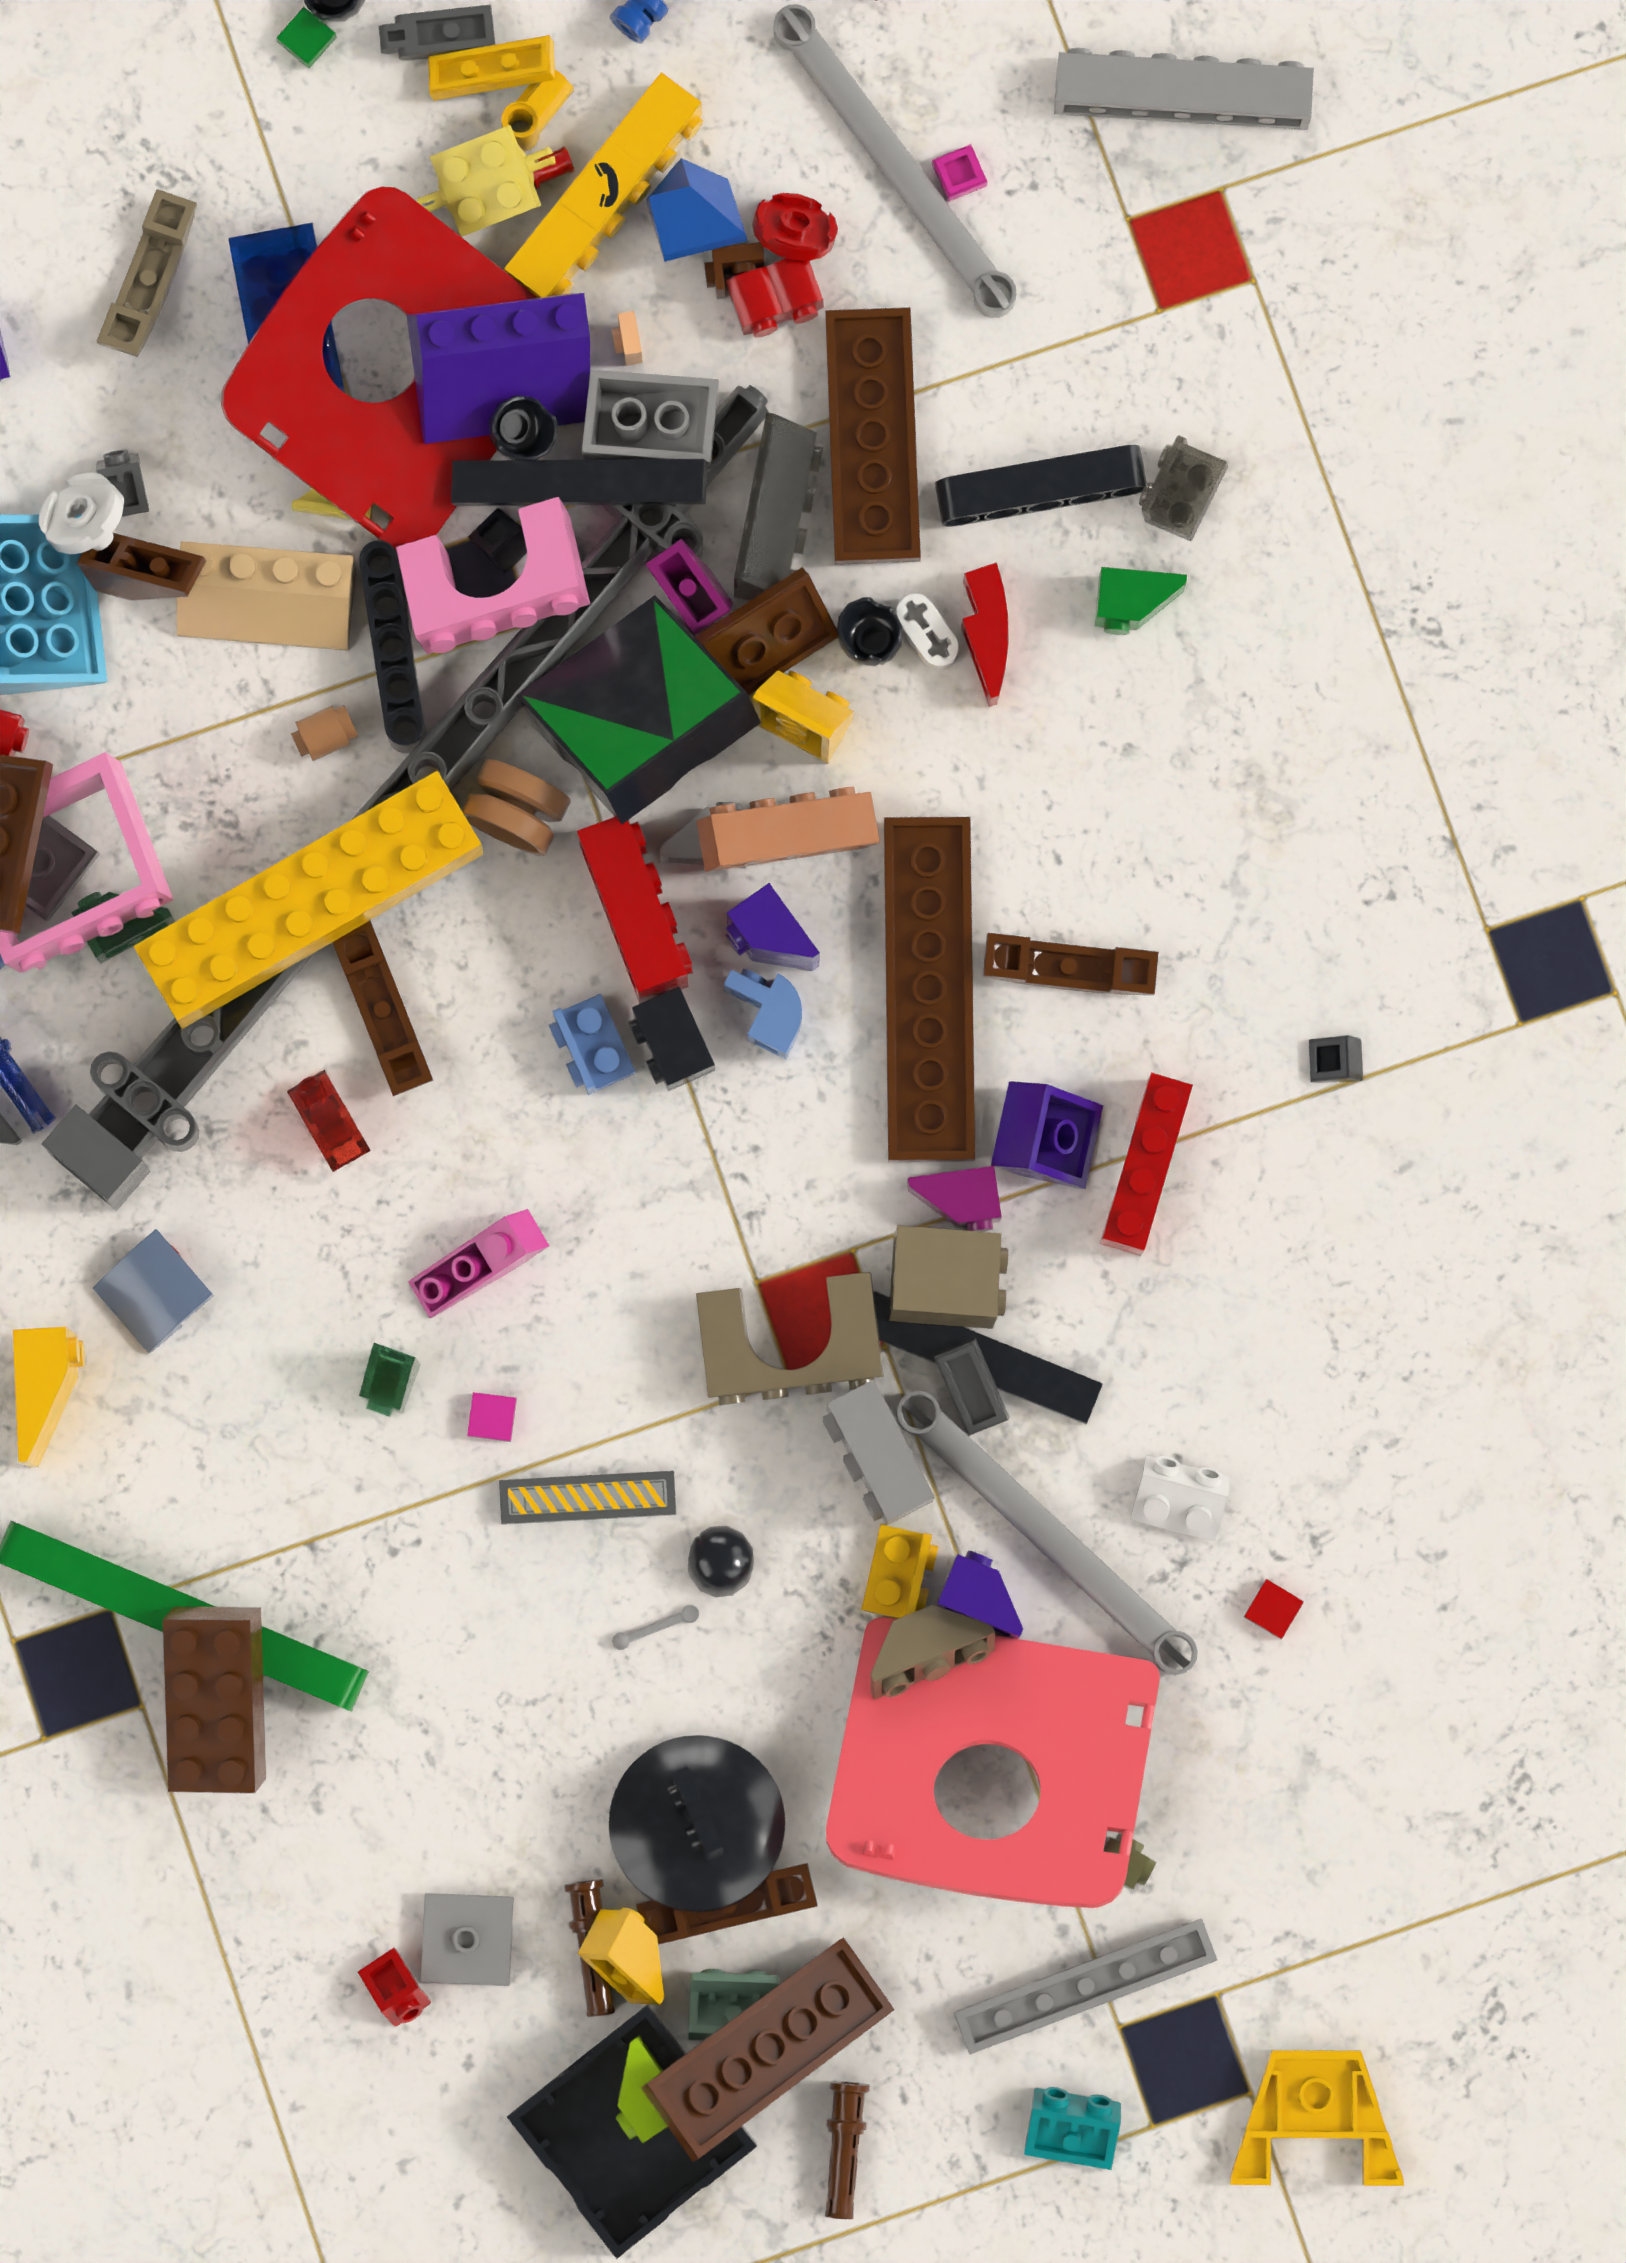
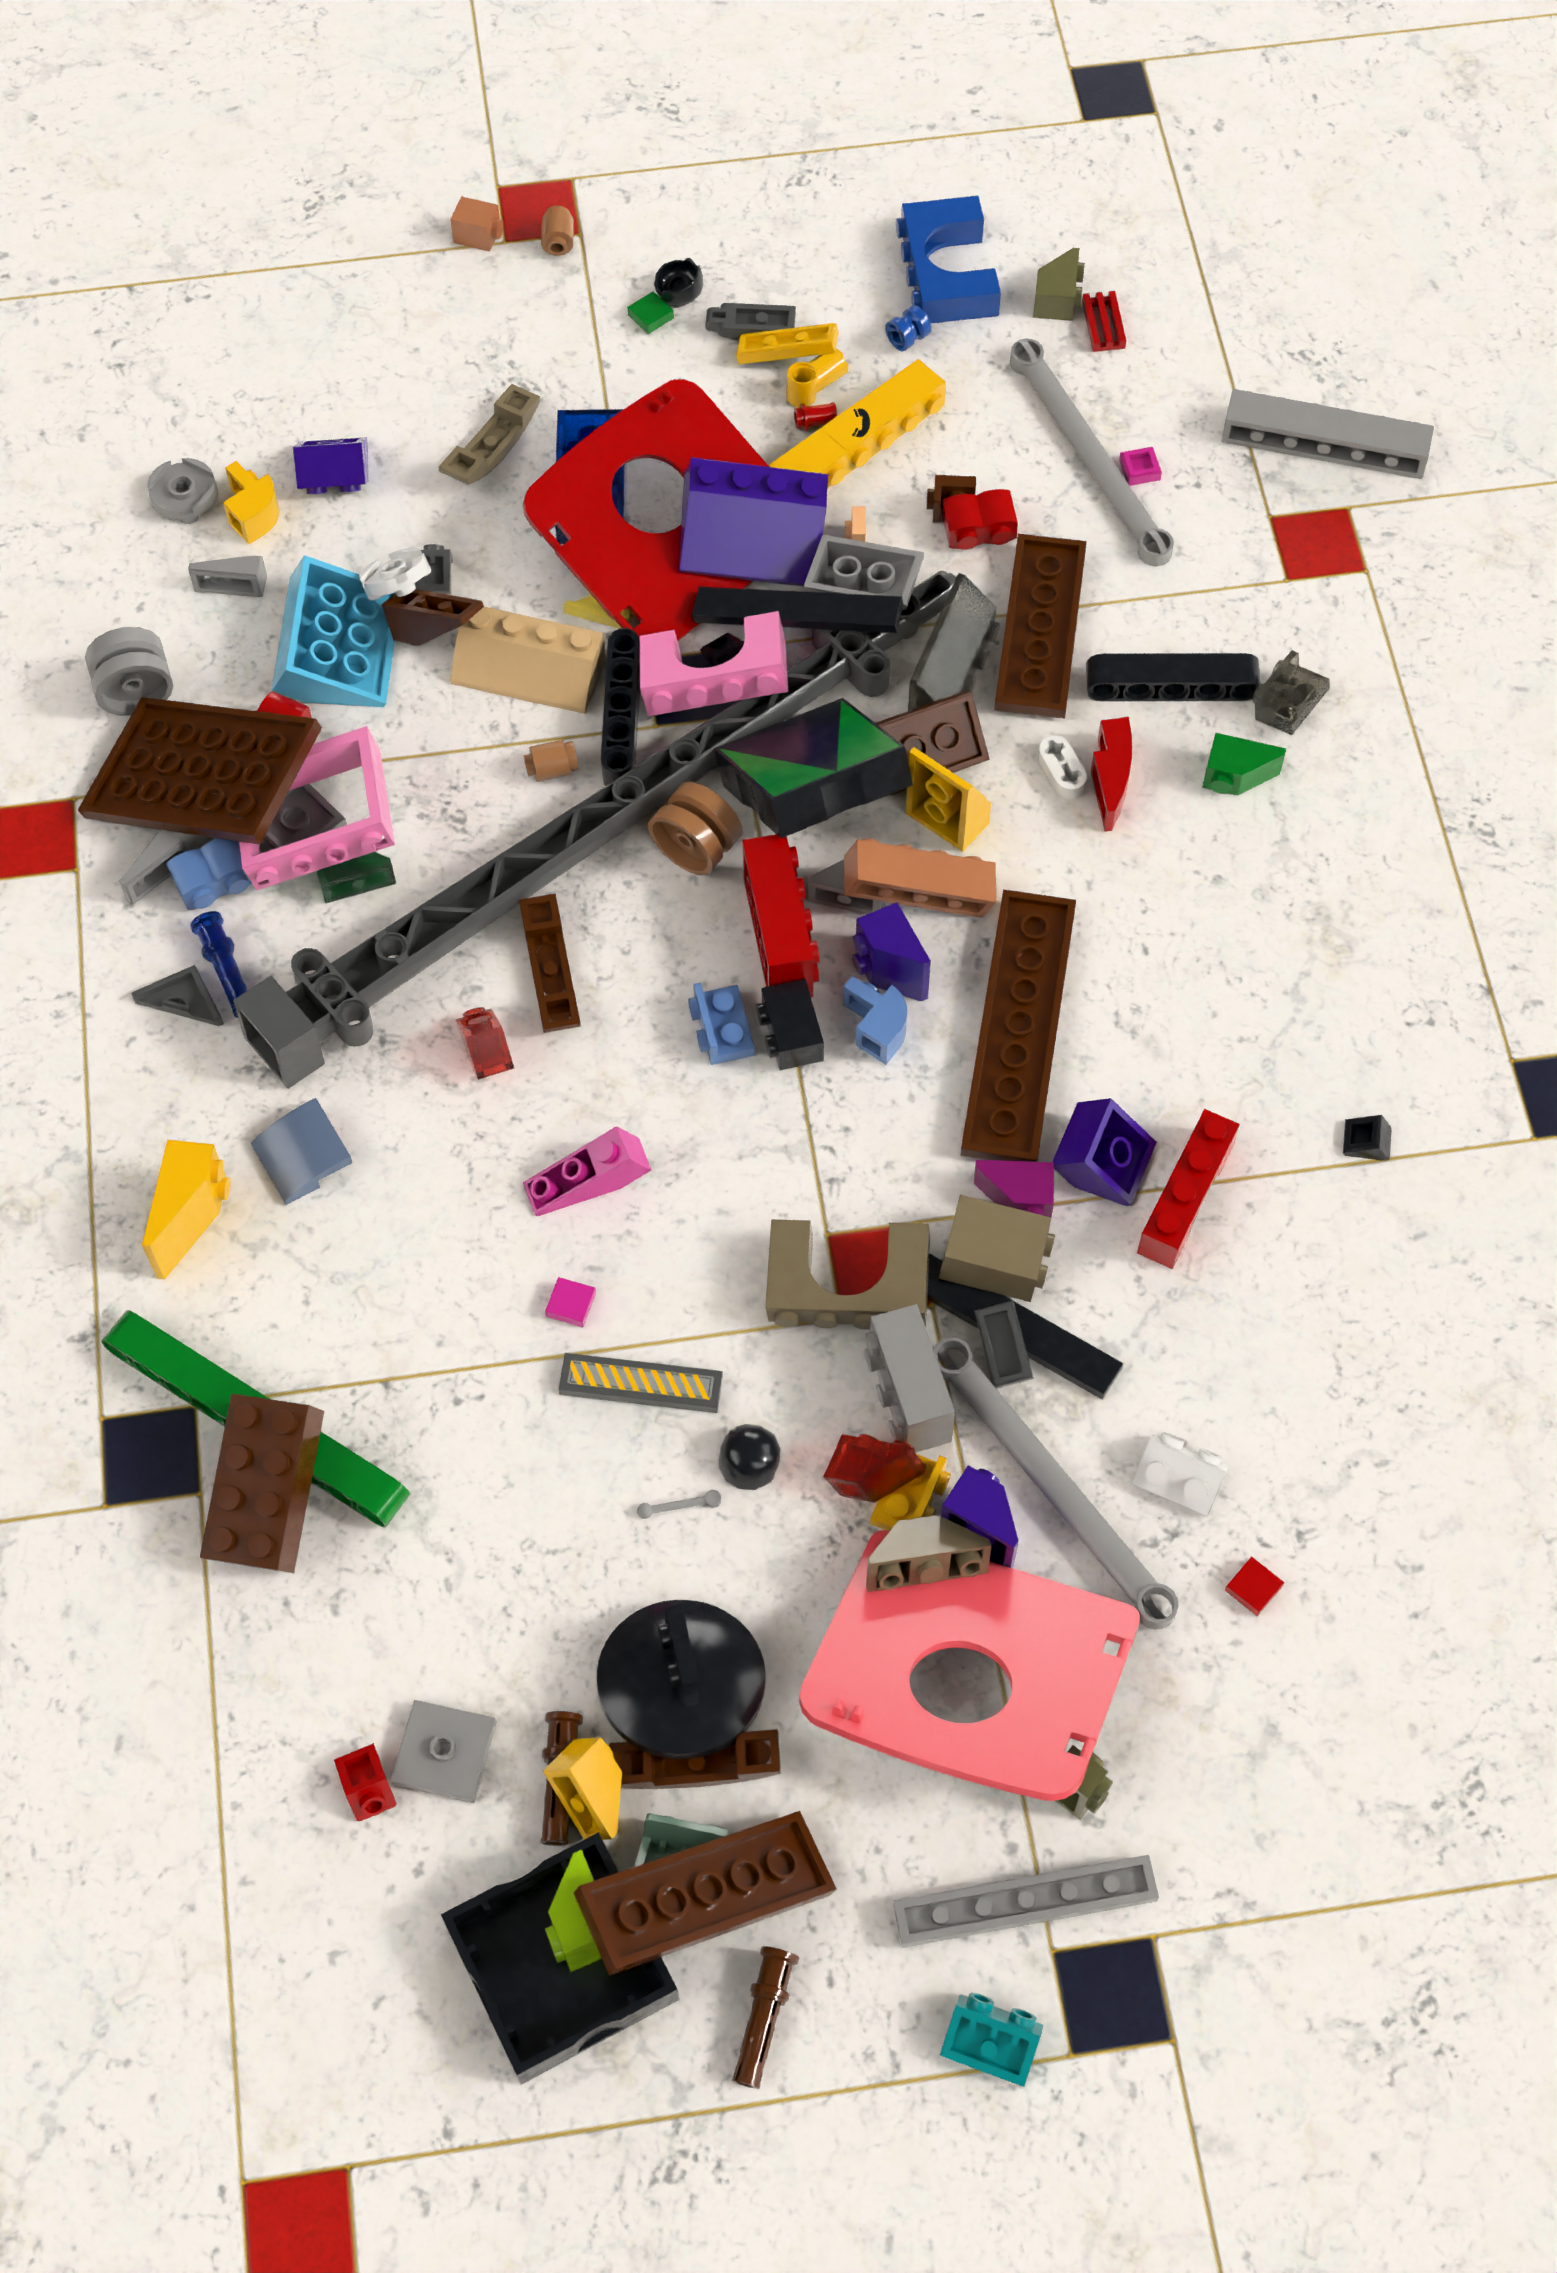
camera: 15 degrees right, 20 degrees down
(309, 899) = (506, 856): yellow brick -> none
(388, 1380) = (486, 1246): clear green slope -> none
(486, 180) = (770, 409): light yellow plate -> none
(522, 428) = (758, 565): black hair -> none
(690, 586) = (870, 688): magenta slope -> none
(694, 212) = (923, 451): blue slope -> none
(794, 227) = (1004, 474): red tile -> none
(852, 1560) = (871, 1468): none -> clear red slope
(869, 632) = (1013, 754): black hair -> none
(1070, 966) = (1143, 1029): reddish brown slope -> none
(1316, 2098) = (1241, 2054): yellow wing -> none

